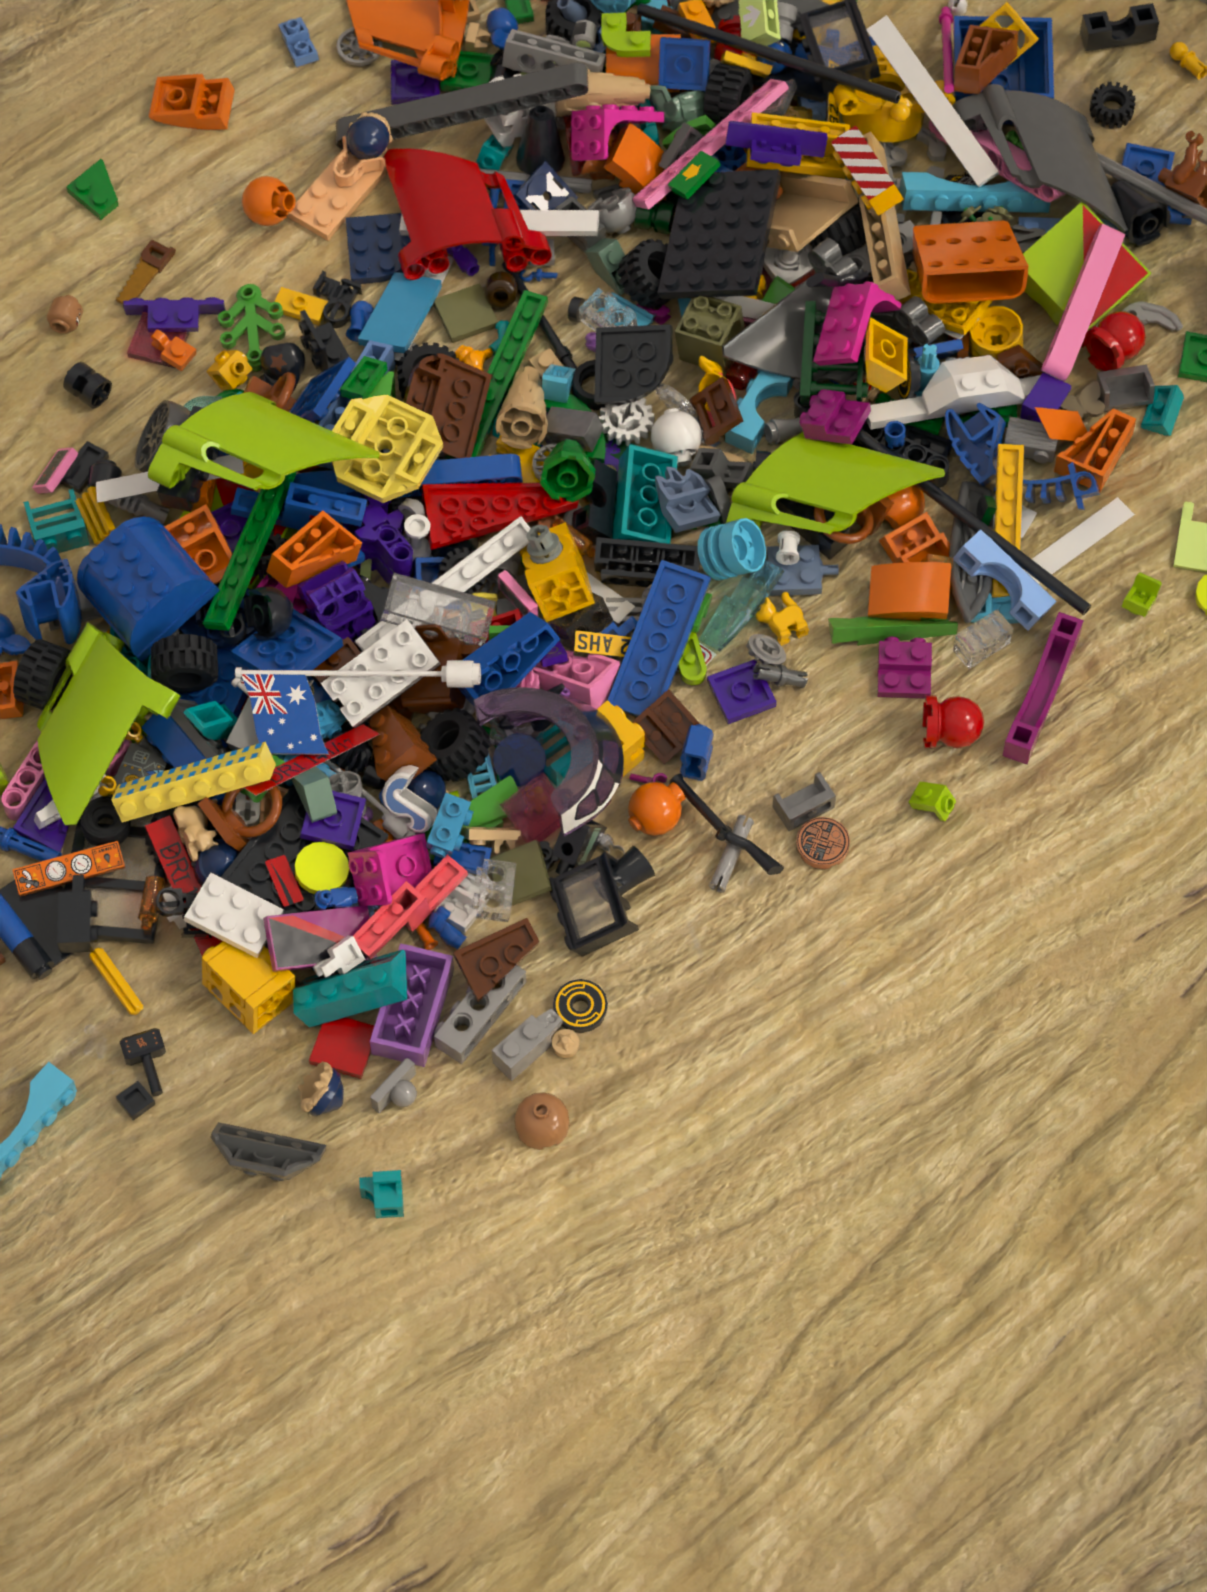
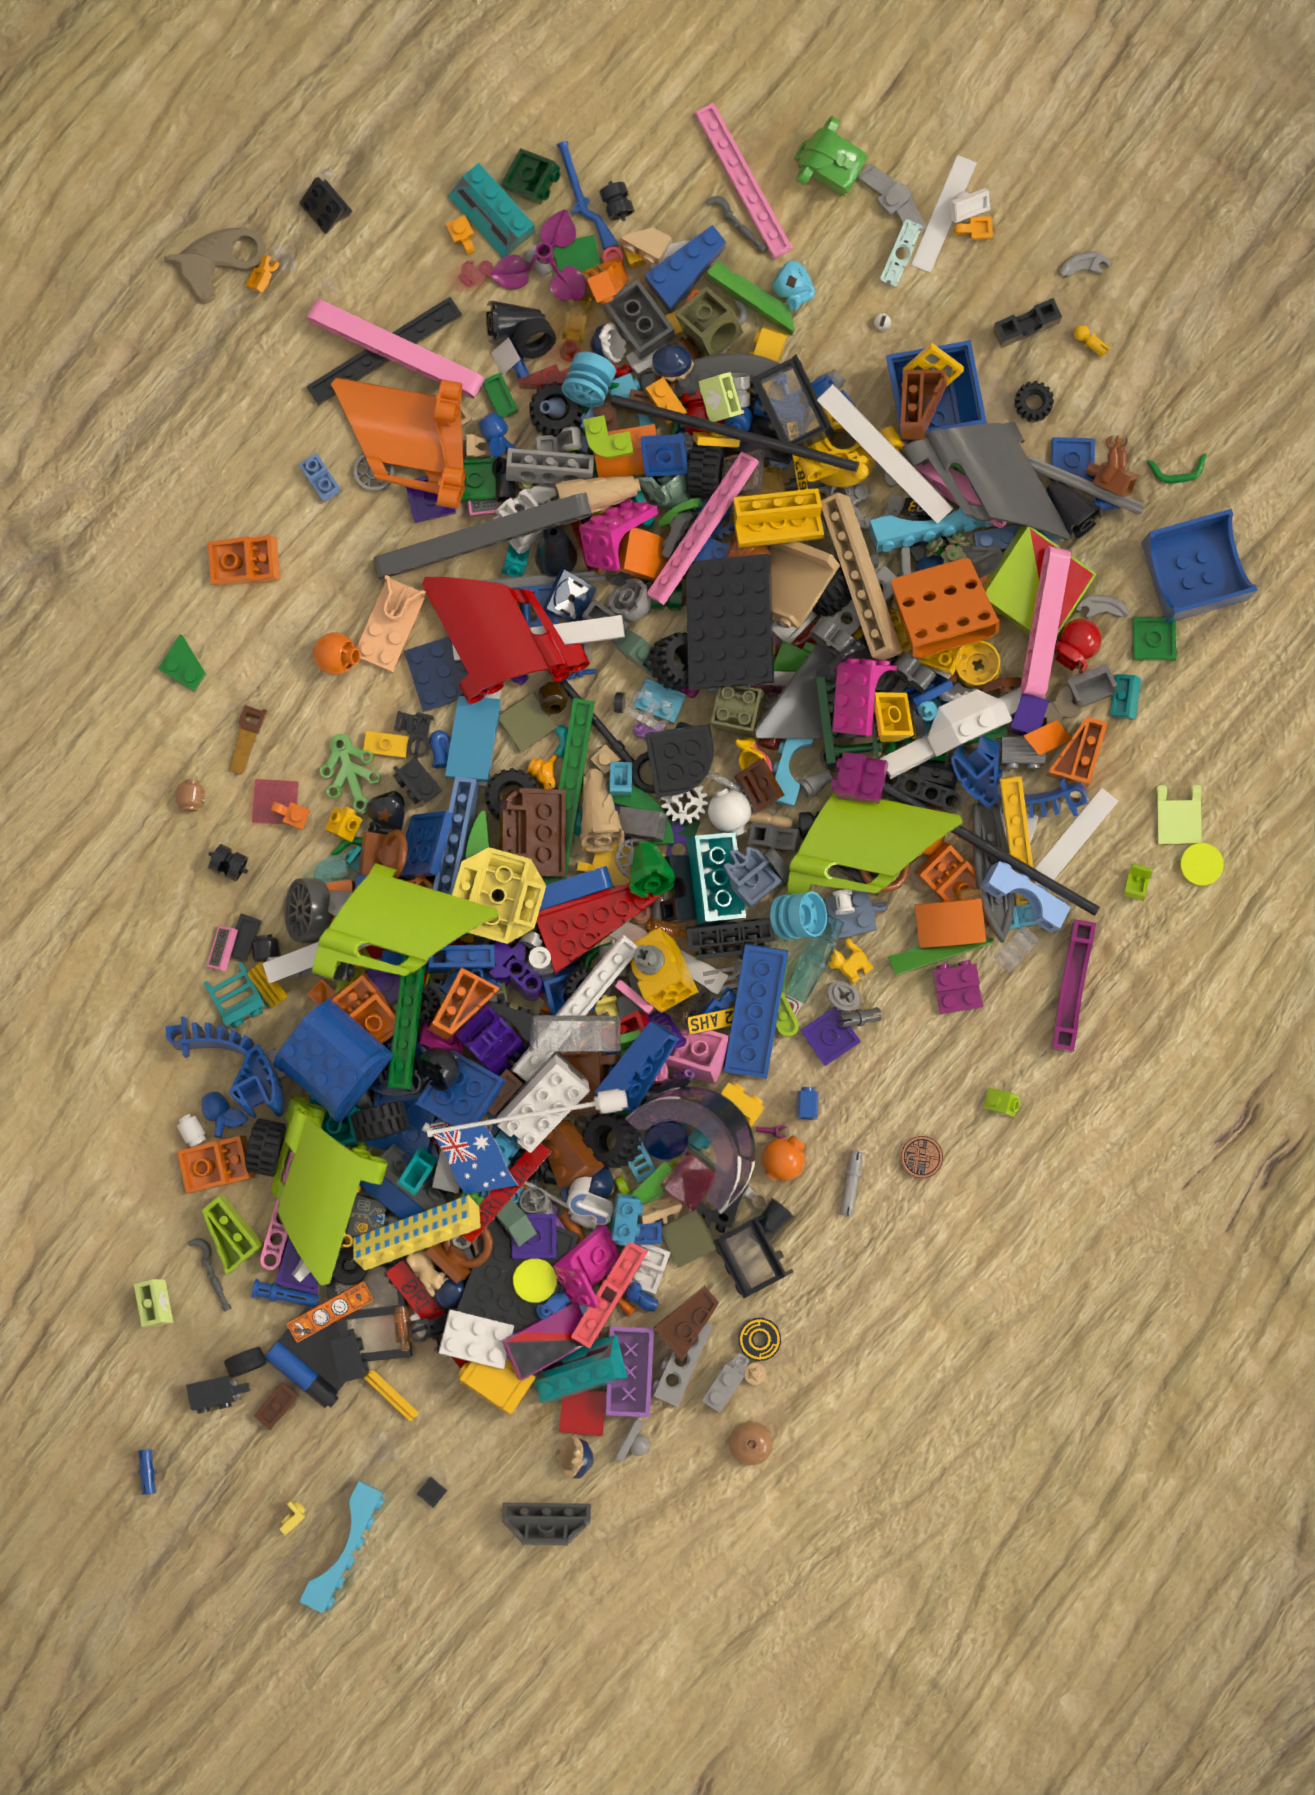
camera: 10 degrees left, 20 degrees up
(143, 1048) = (426, 1449): black piece -> none
(174, 314) = (283, 780): dark purple bracket -> none
(284, 880) = (507, 1297): red sticker -> none
(343, 958) = (569, 1354): white plate -> none
(364, 378) = (462, 825): green plate -> none
(368, 136) = (407, 575): dark blue hair -> none
(385, 1192) = (644, 1531): teal brick -> none
(500, 891) = (679, 1260): clear brick -> none
(666, 725) = (777, 1082): reddish brown slope -> none
(694, 175) = (696, 568): green tile -> none
(725, 832) = (879, 1188): black piece -> none
(776, 143) = (762, 528): dark purple bracket -> none
(805, 803) = (900, 1125): flat silver panel -> none
(867, 171) = (843, 541): brick -> none
(895, 434) = (912, 776): blue hose -> none
(946, 20) = (876, 341): dark pink bar -> none
(953, 721) = (1007, 1033): red tile -> none
(986, 509) = (998, 833): dark green tile -> none

